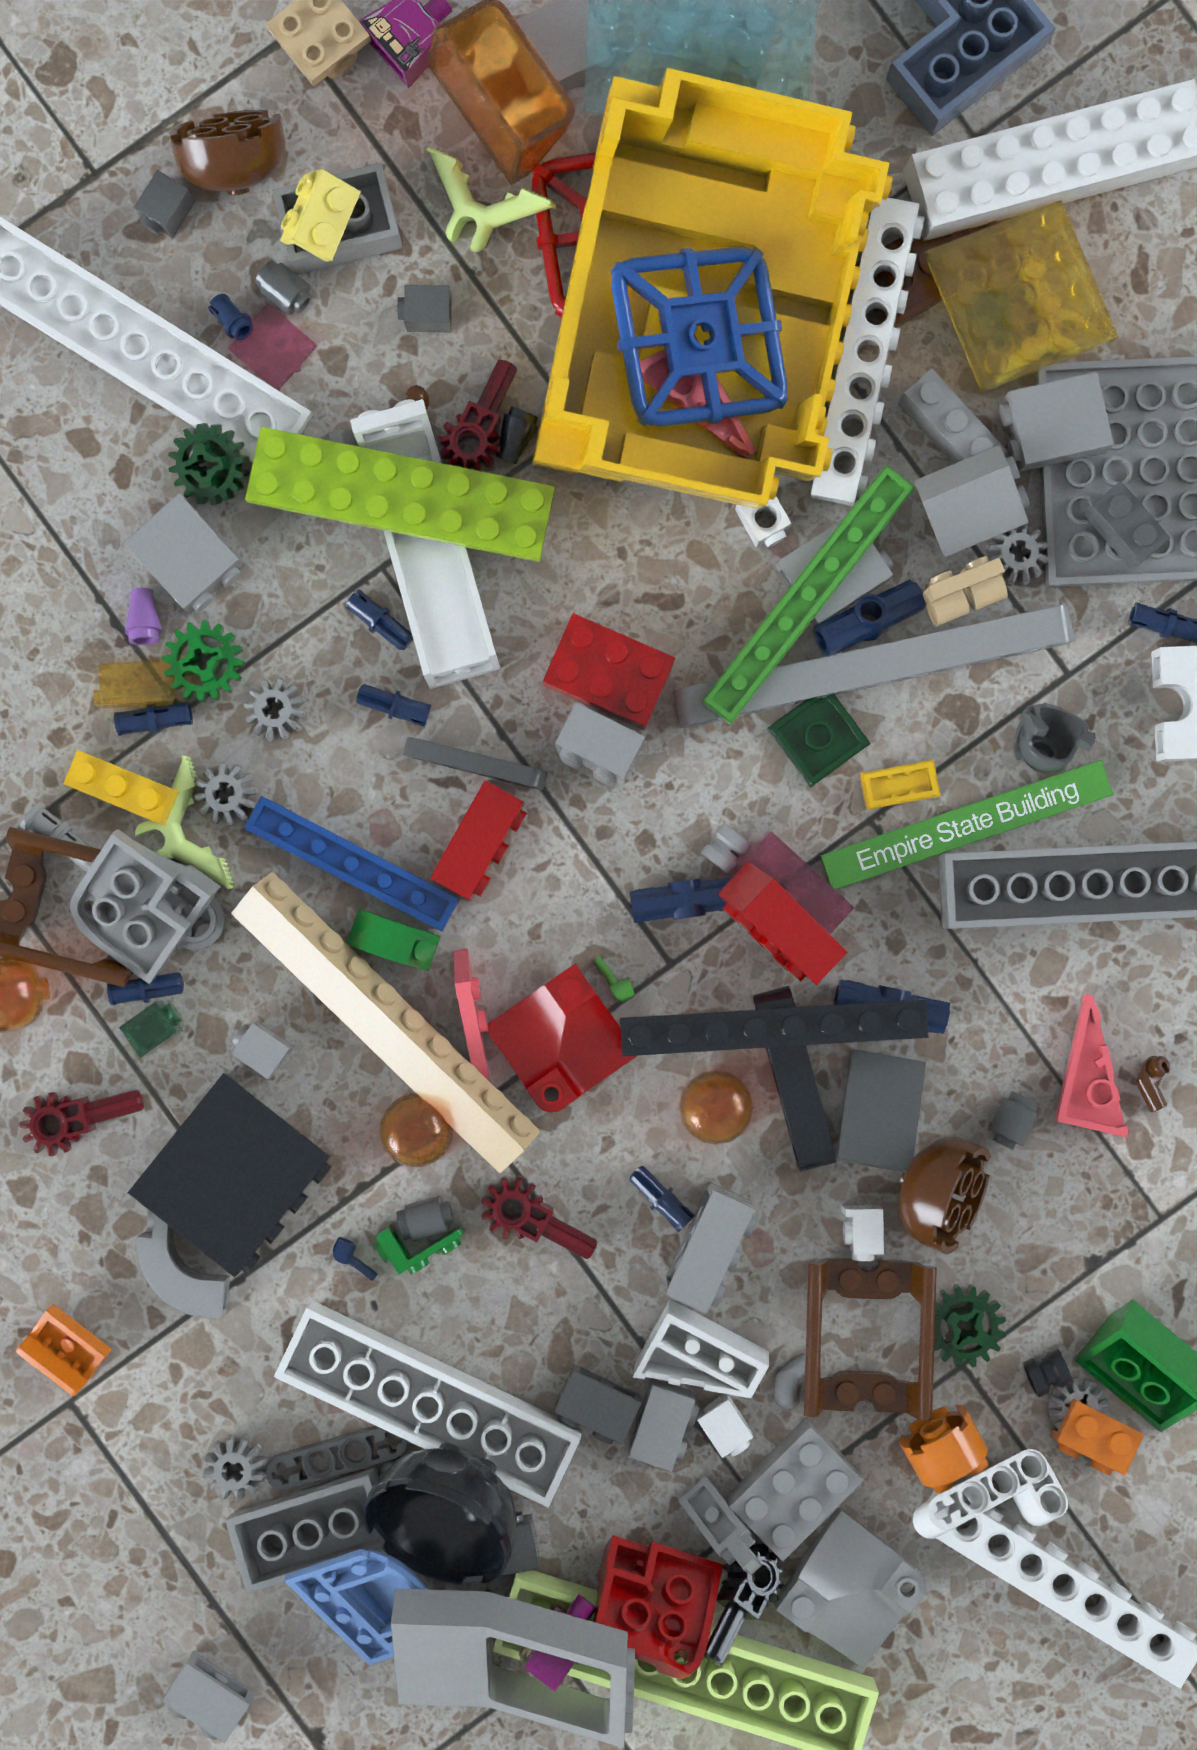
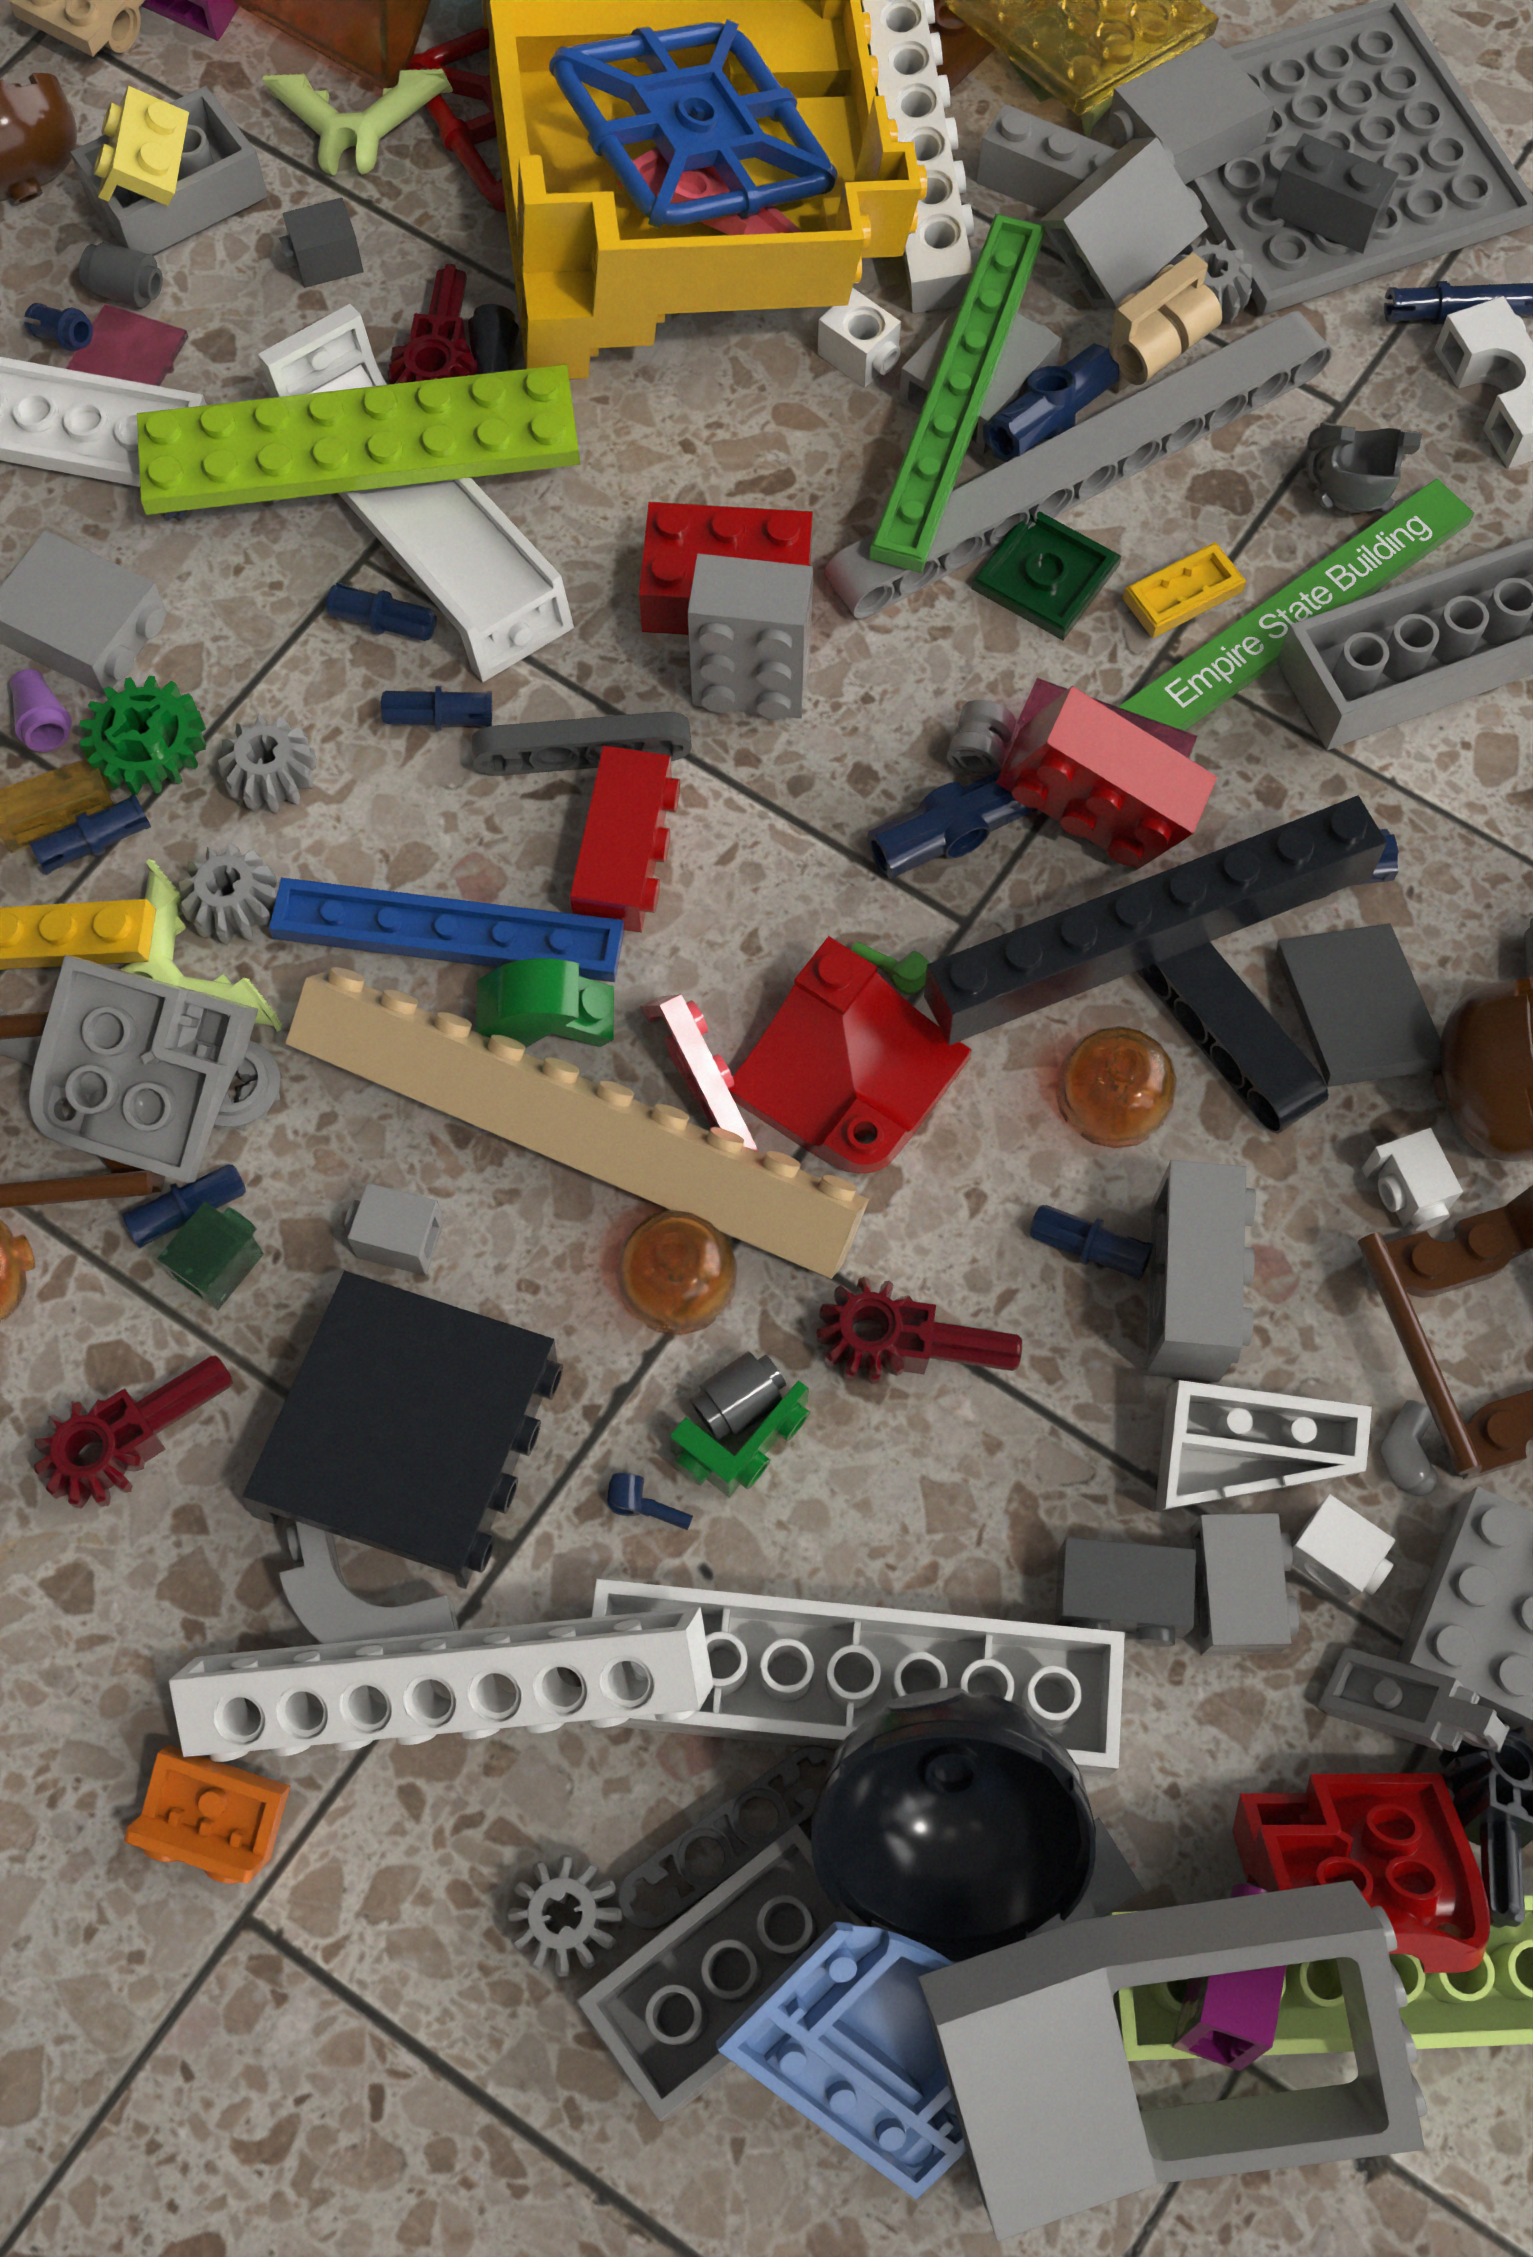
camera: 20 degrees left, 20 degrees down
(205, 447) = (85, 493): dark green gear -> none
(205, 1338) = (665, 1643): none -> white brick

